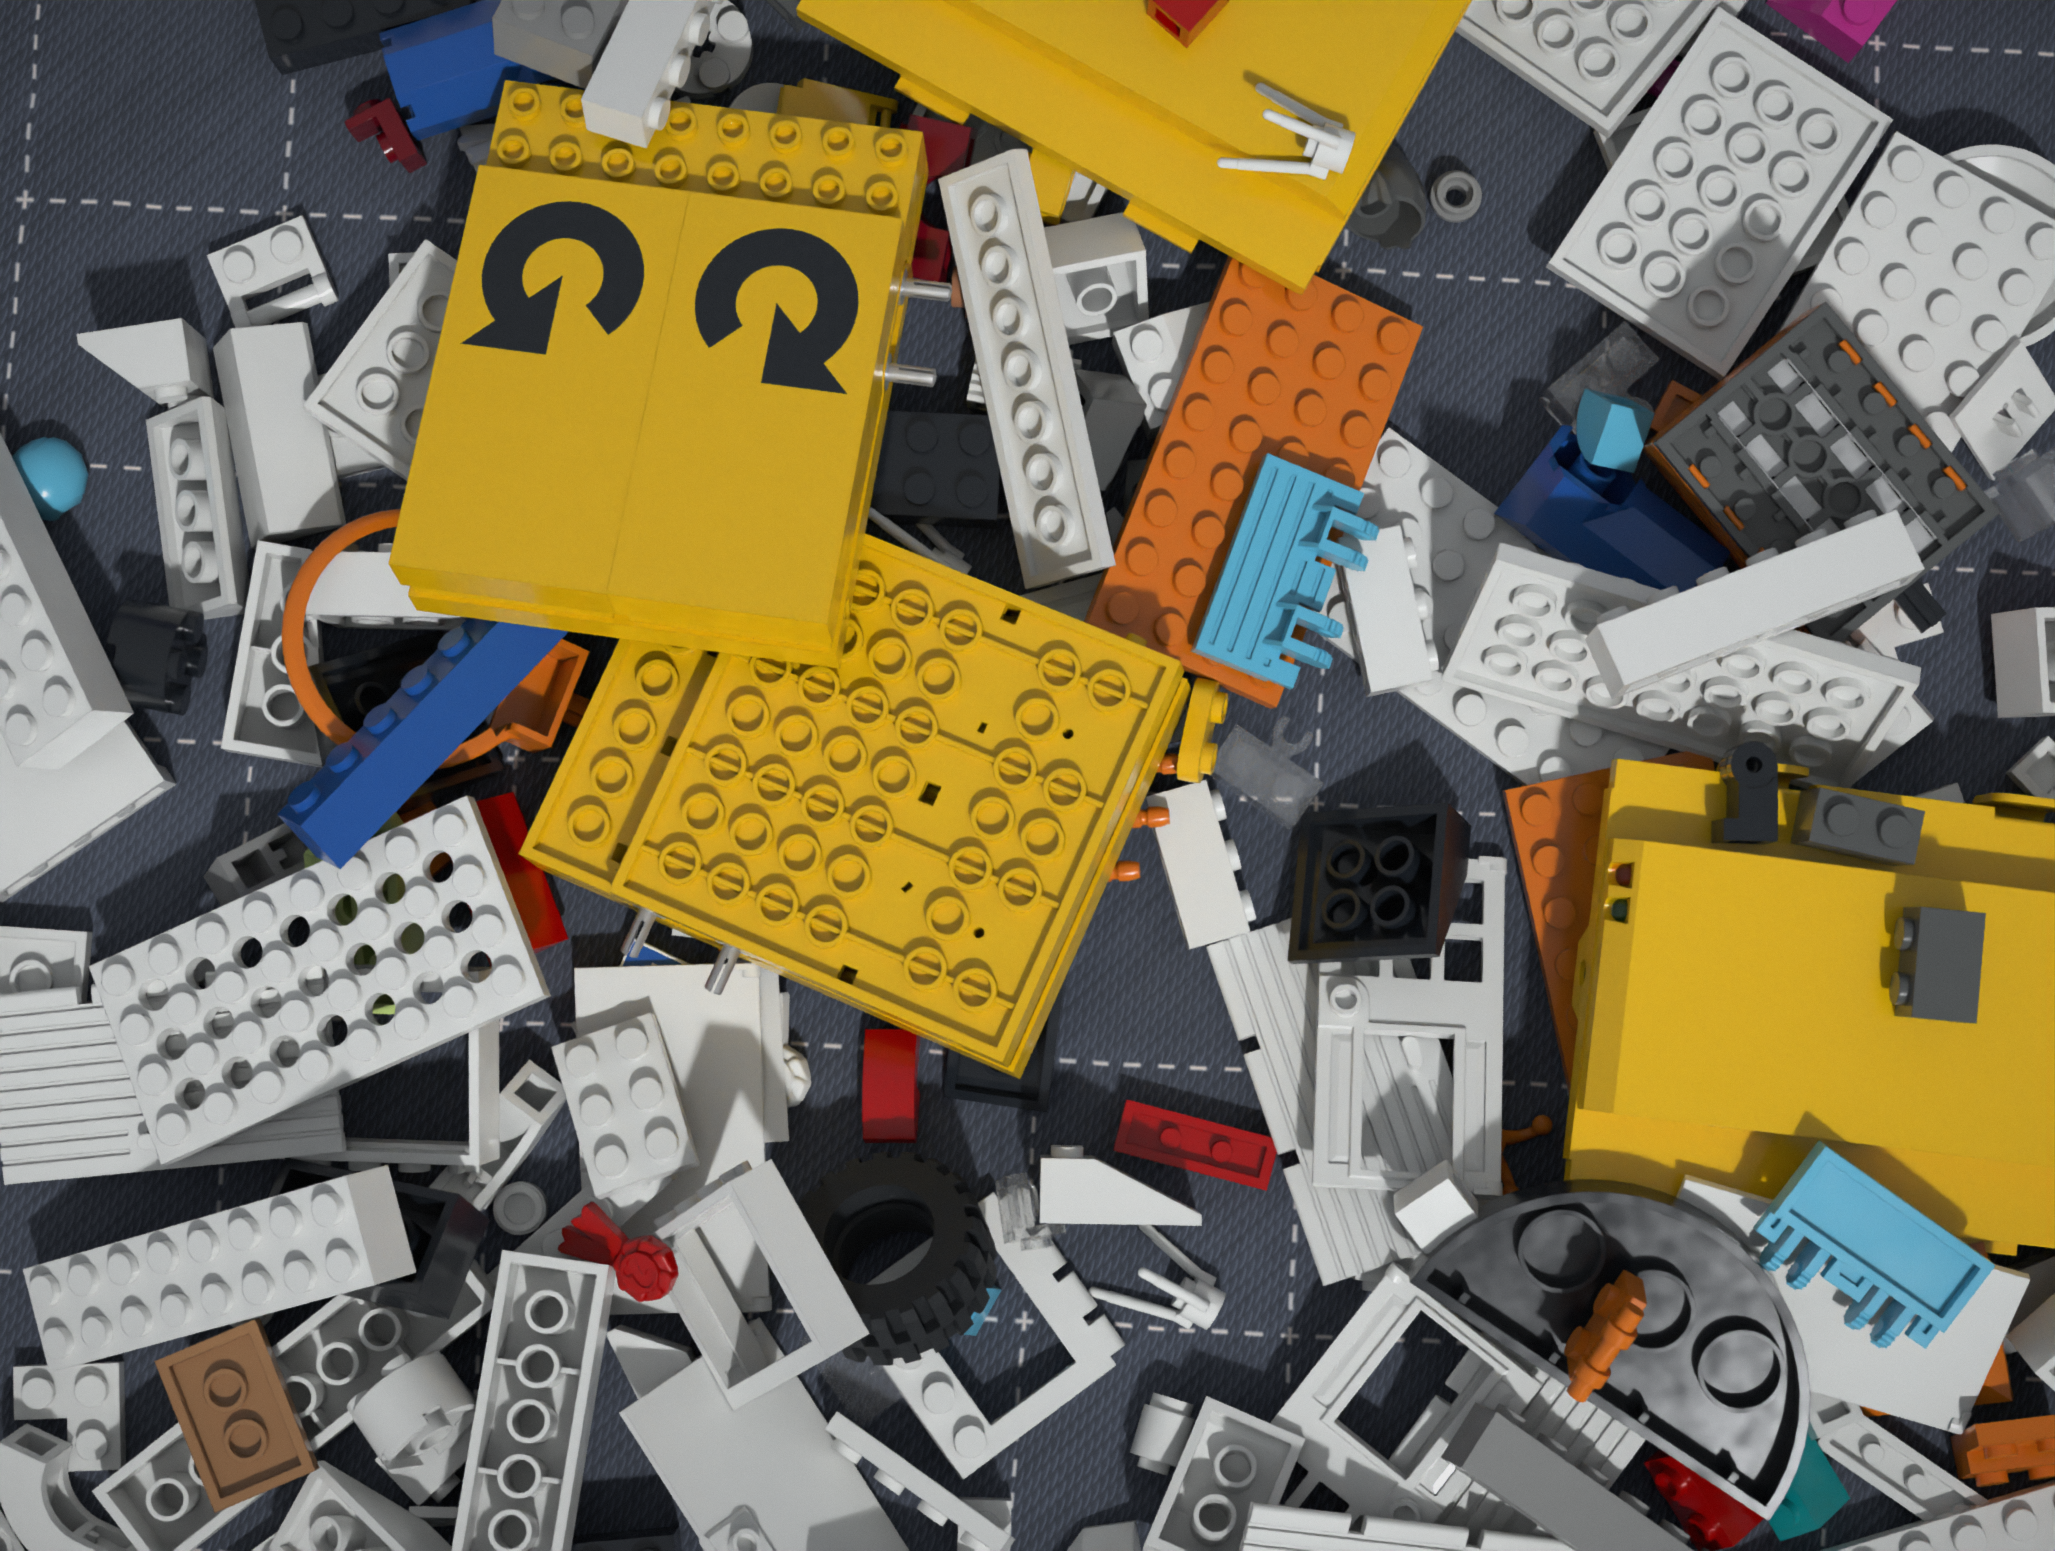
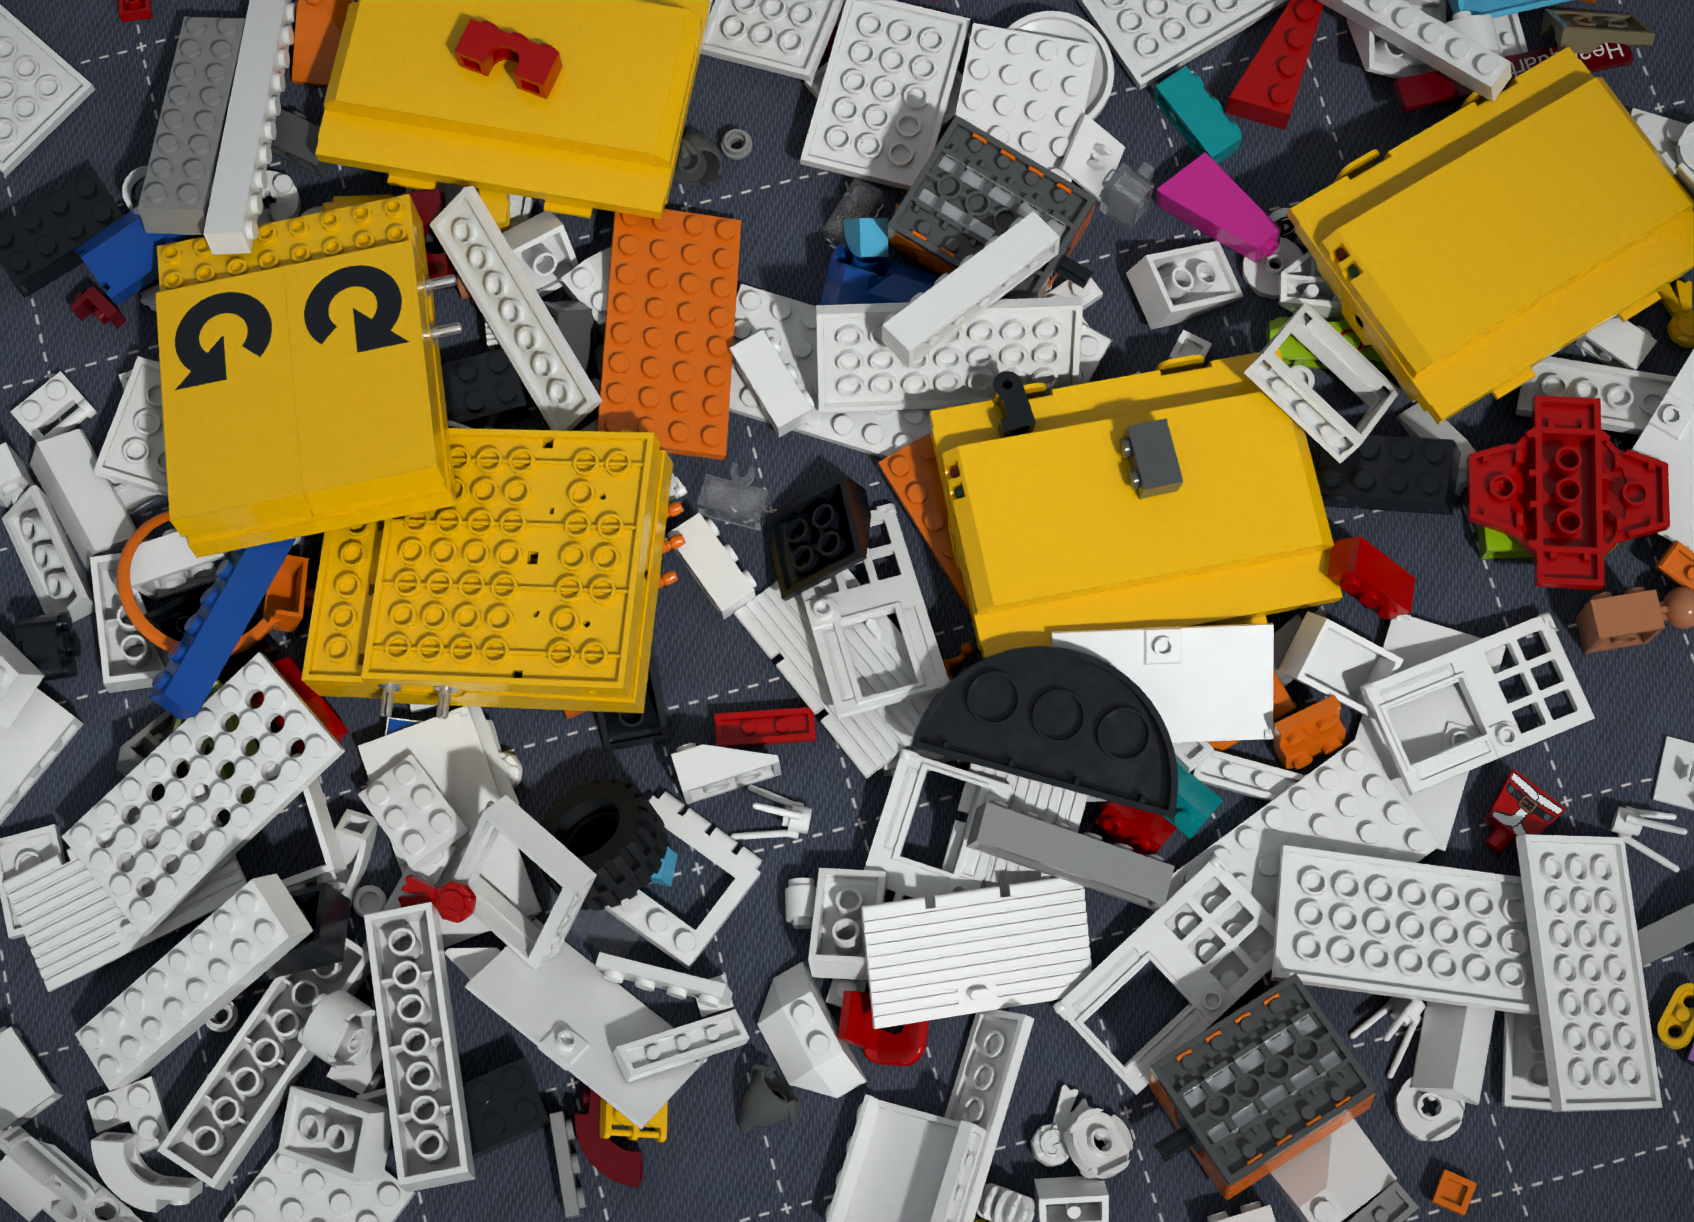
camera: 15 degrees left, 10 degrees down
(237, 1415) = (232, 1070): medium nougat plate -> none
(890, 1086) = (570, 753): red slope -> none
(1017, 1207) = (670, 799): clear bracket -> none
(1196, 752) = (686, 492): yellow plate -> none
(1275, 571) = (697, 378): medium azure hinge -> none
(1326, 140) = (643, 123): white plant -> none
(1435, 1206) = (912, 700): white panel -> none
(1609, 1330) = (1036, 722): orange plate -> none
(1857, 827) = (1080, 401): dark grey brick -> none
(1876, 1248) = (1177, 632): medium azure hinge -> none

